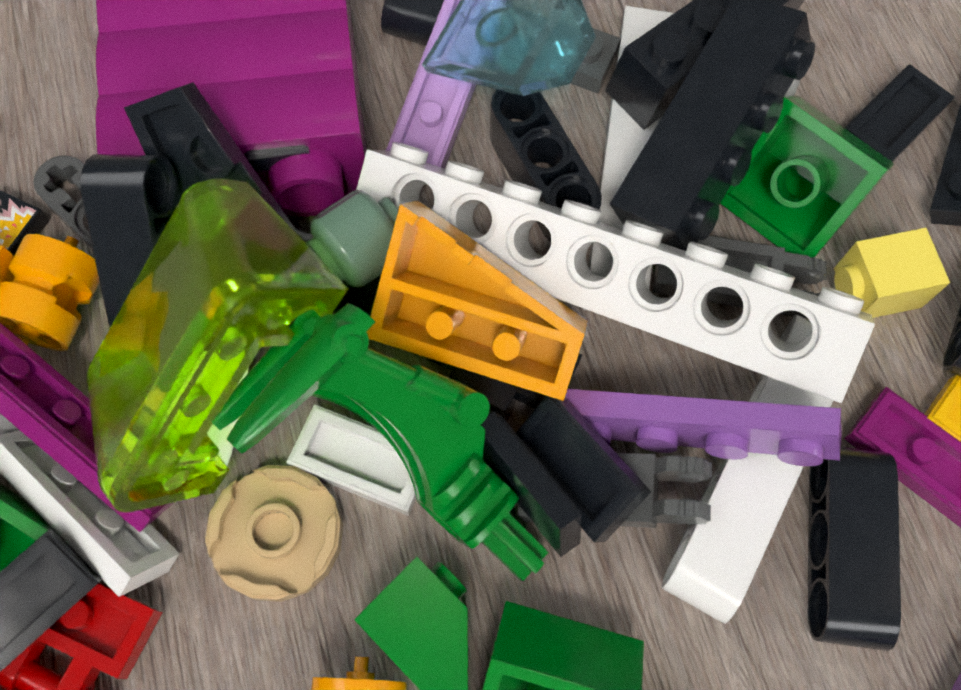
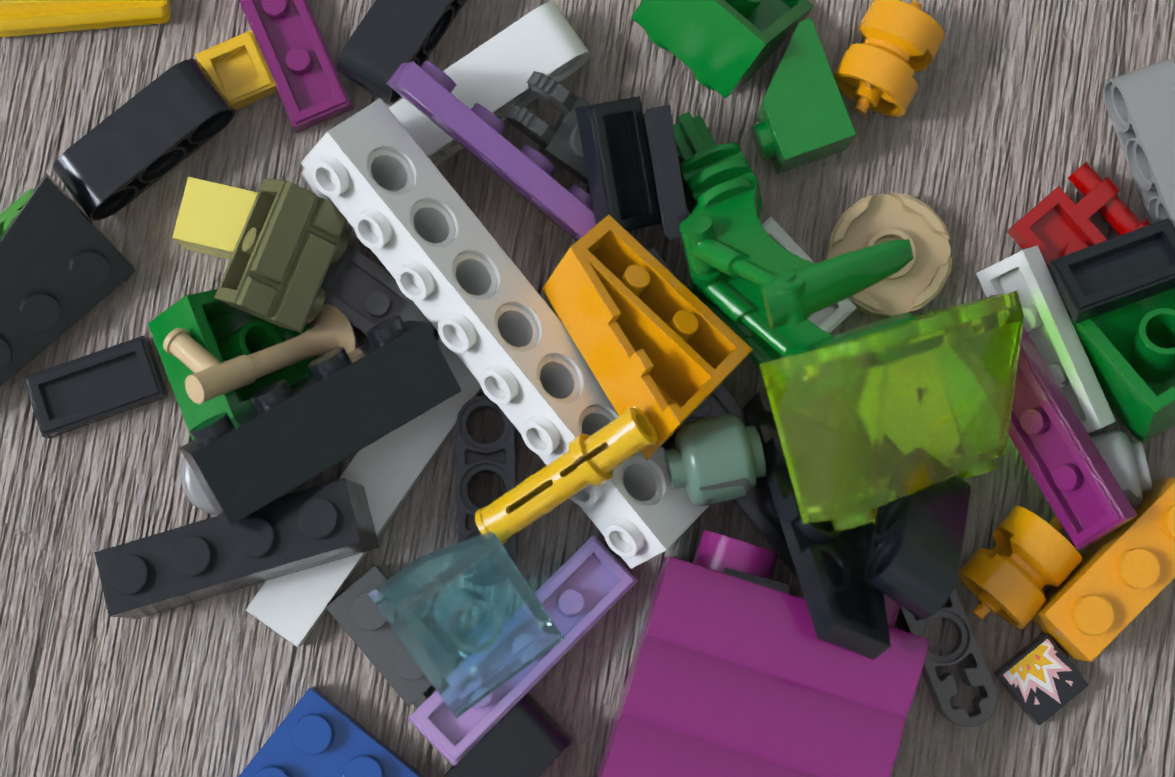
camera: 155 degrees left, 15 degrees up
(471, 163) = (586, 463): none -> yellow pin
(816, 110) = (212, 378): none -> tan piece
(828, 235) = (284, 255): none -> olive brick

